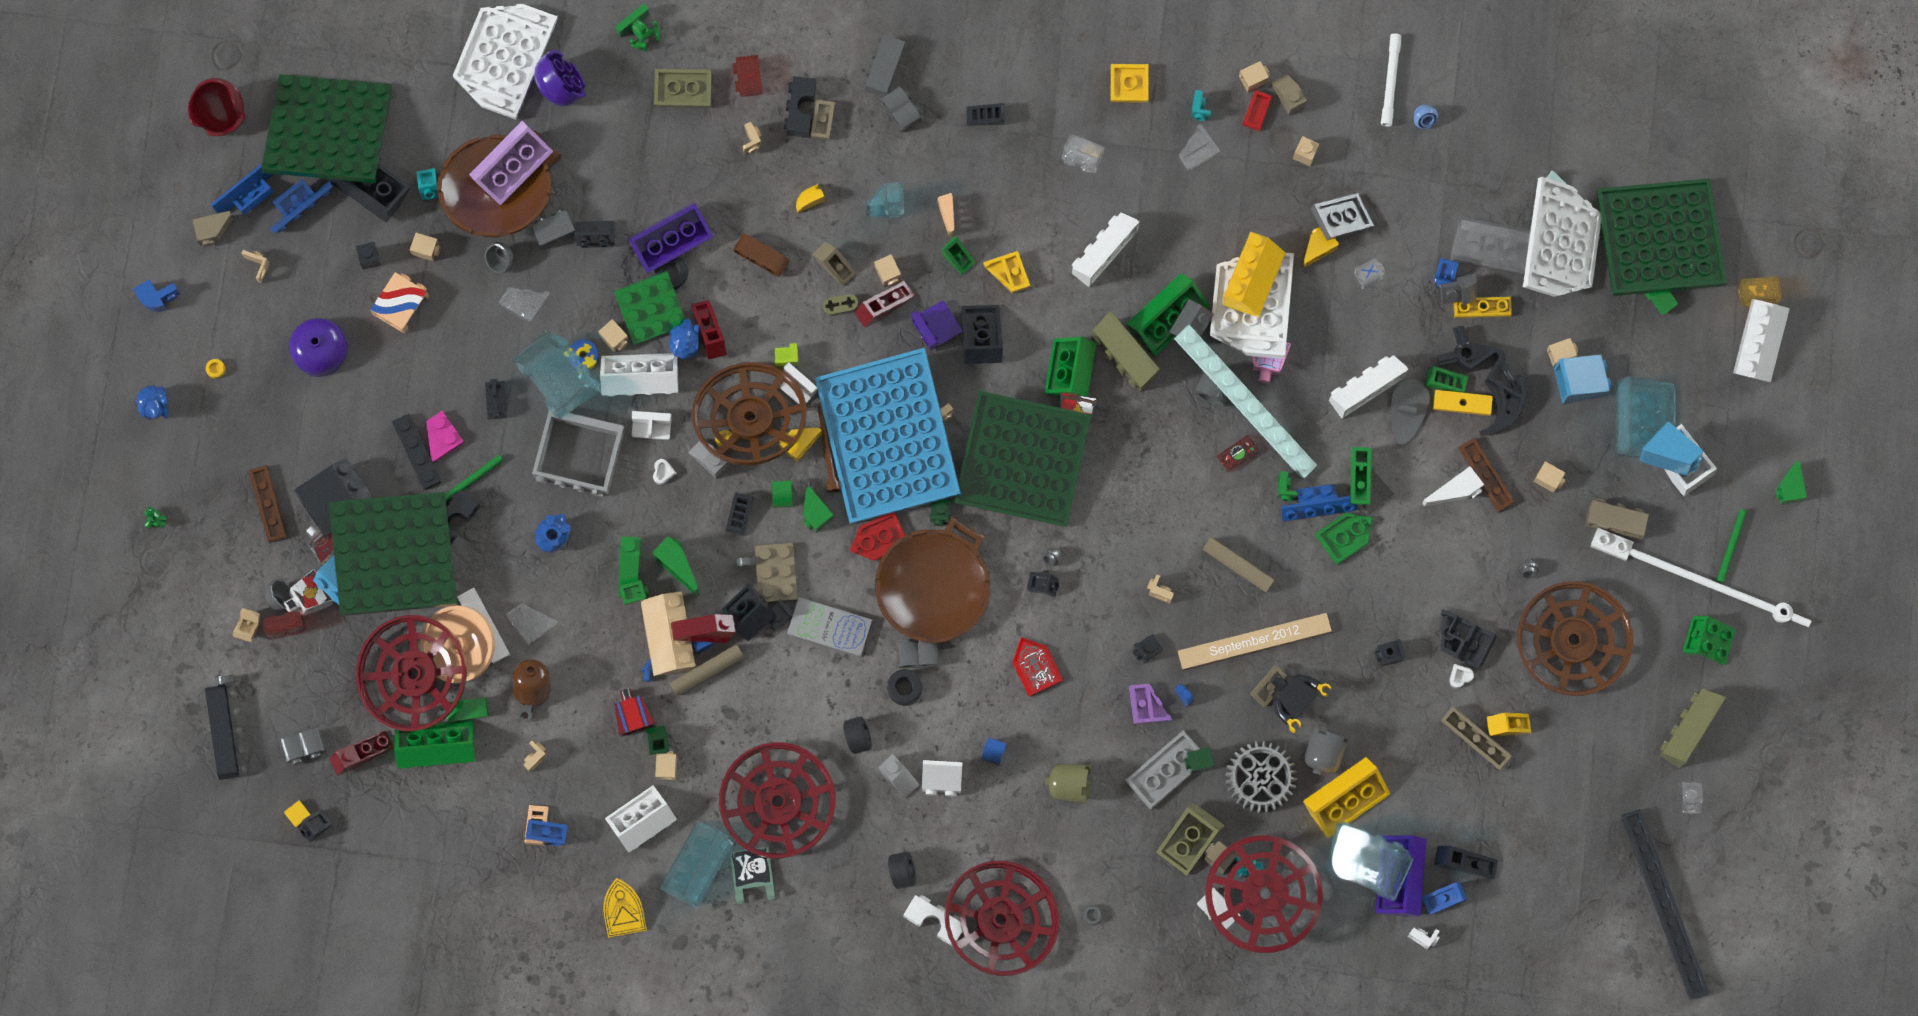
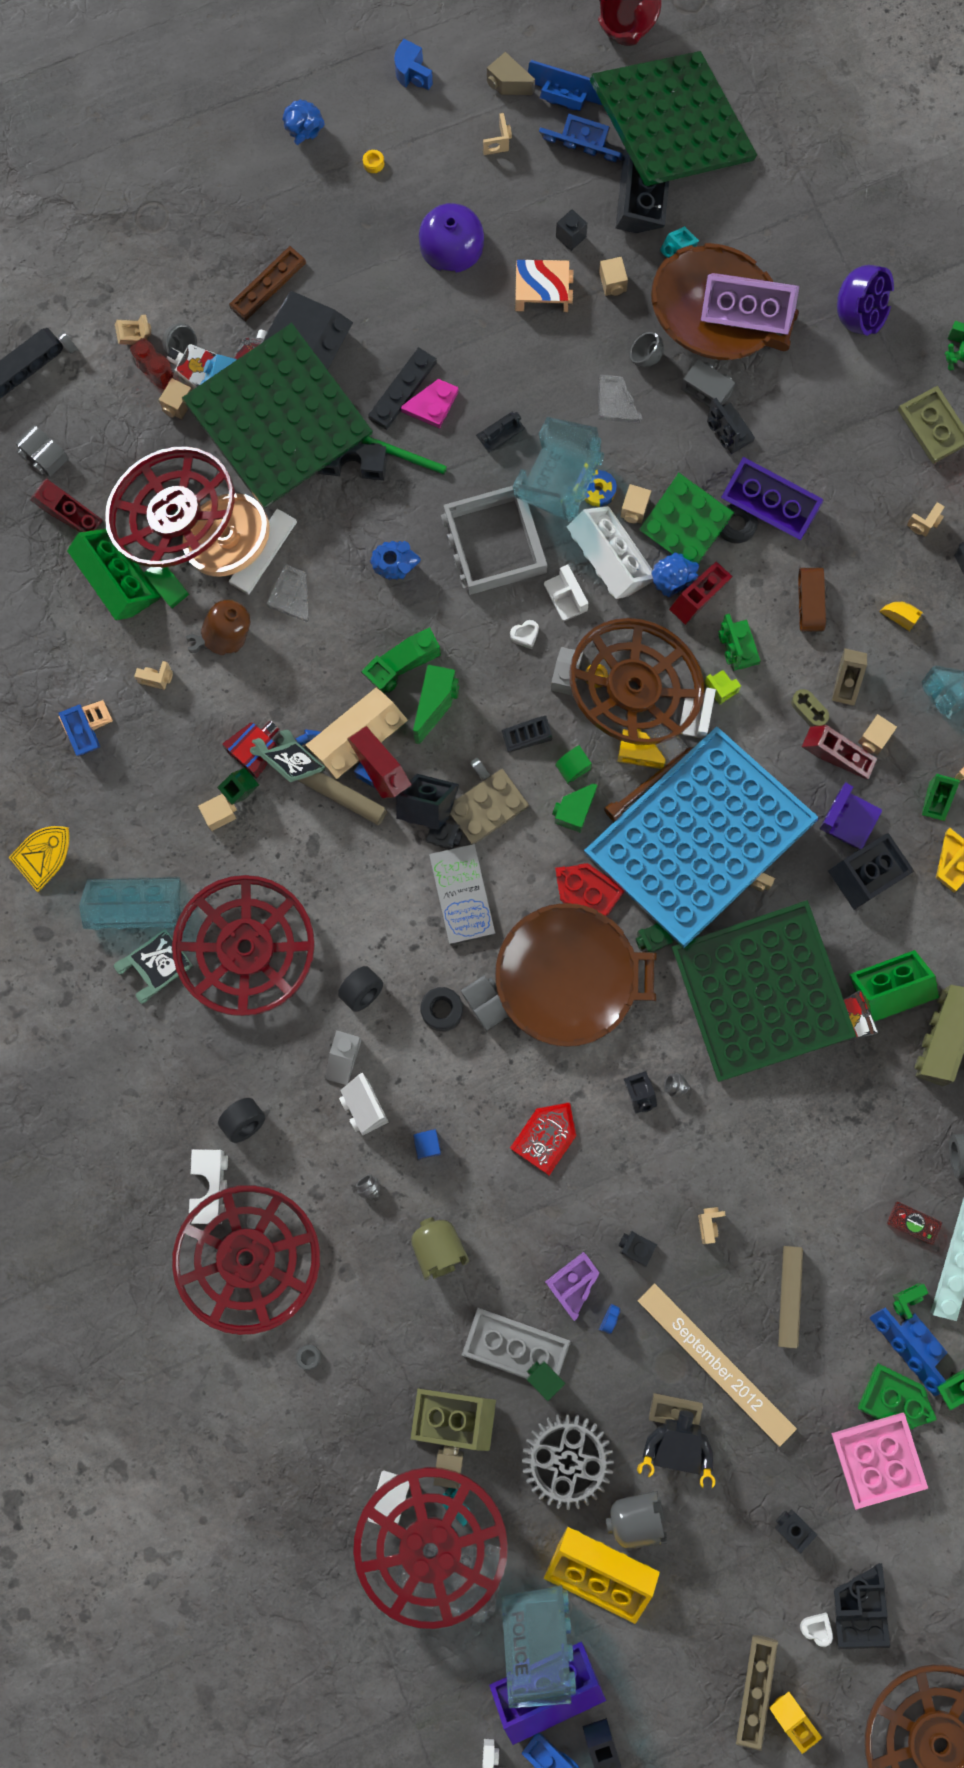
camera: 65 degrees right, 0 degrees up
(153, 518) = (191, 189): green plant -> none
(323, 623) = (172, 401): none -> tan brick
(502, 56) = (854, 232): white plate -> none
(641, 819) = (148, 818): white slope -> none
(658, 691) = (289, 758): none -> flag
(763, 326) = (739, 644): none -> green bracket
(999, 808) = (368, 1187): none -> flat silver plate
(1377, 570) = (879, 1460): none -> bright pink plate

